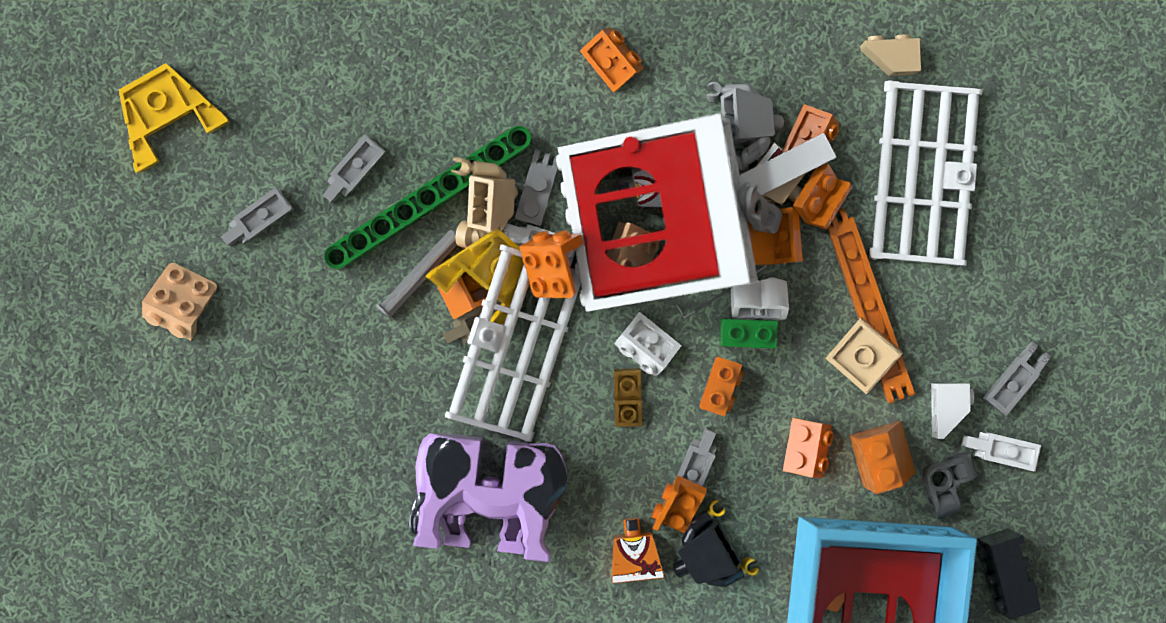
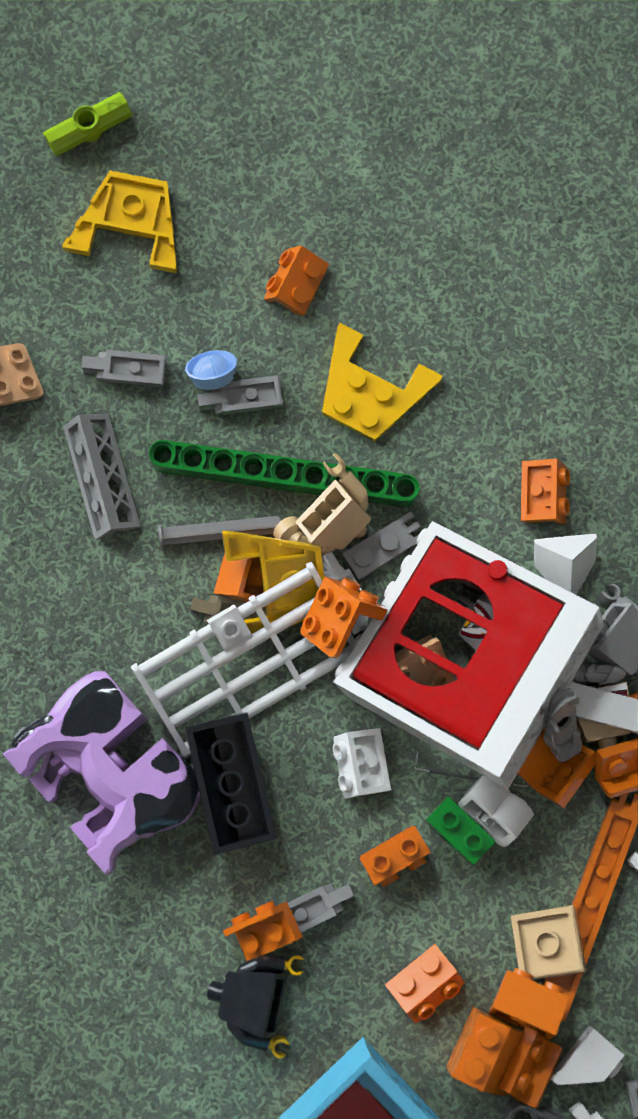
camera: 45 degrees right, 10 degrees down
(76, 52) = (72, 133): none -> lime piece
(303, 309) = (94, 475): none -> light grey fence
(316, 169) = (212, 369): none -> light blue hat
(317, 55) = (296, 279): none -> orange bracket
(437, 99) = (363, 399): none -> yellow wing
(575, 433) = (230, 783): none -> black slope
(627, 397) = (303, 794): pearl gold slope -> none
(635, 555) = (186, 941): torso -> none
(666, 94) = (566, 559): none -> white slope
(885, 404) = (529, 1003): none -> orange slope
(918, 442) = (530, 1068): none -> orange bracket

